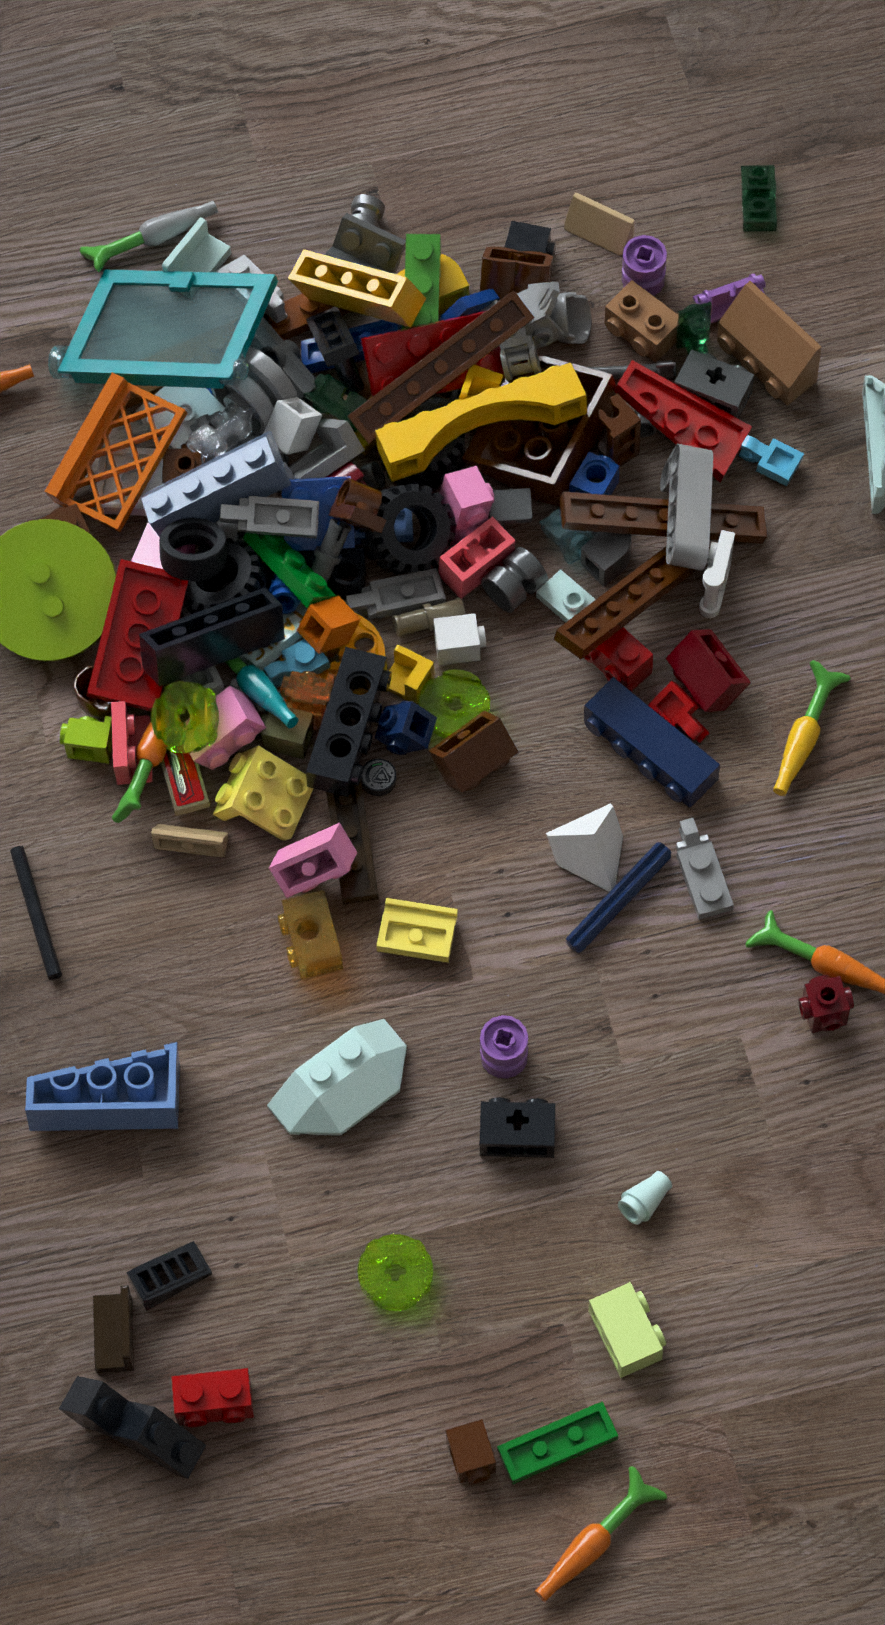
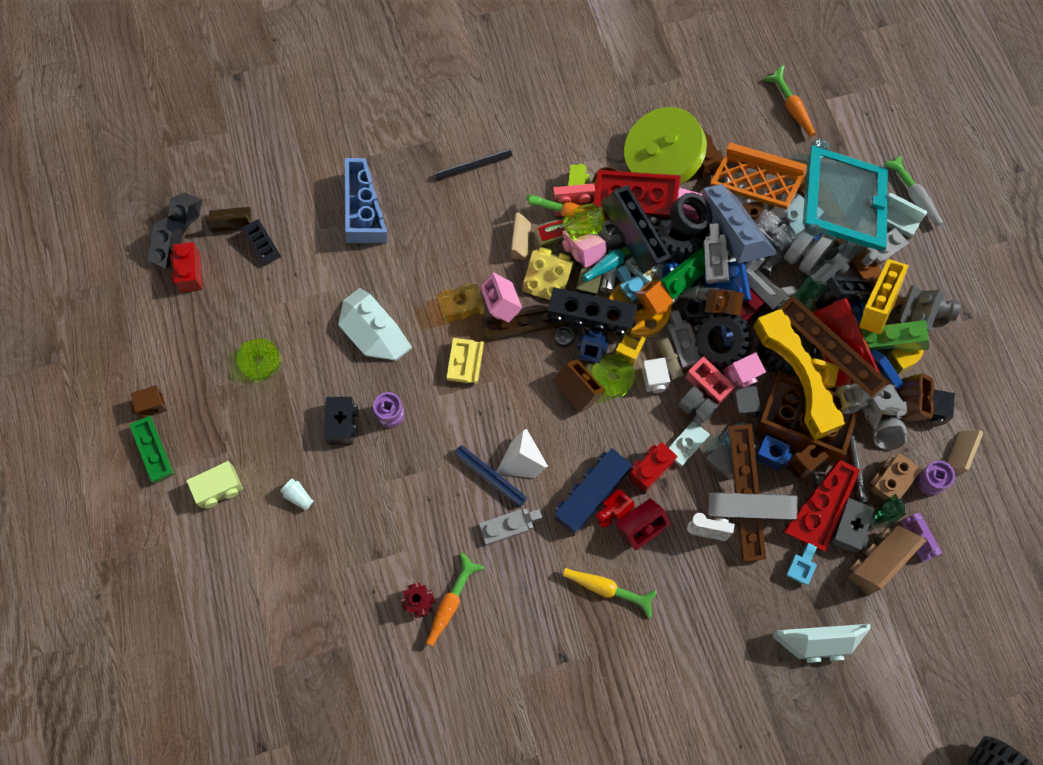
camera: 85 degrees right, 5 degrees up
(293, 425) = (788, 271): white brick -> none
(307, 692) = (608, 286): clear orange brick -> none
(596, 1537) = (95, 472): orange piece -> none
(620, 605) = (678, 464): reddish brown plate -> none
(758, 198) = (1003, 554): clear green slope -> none

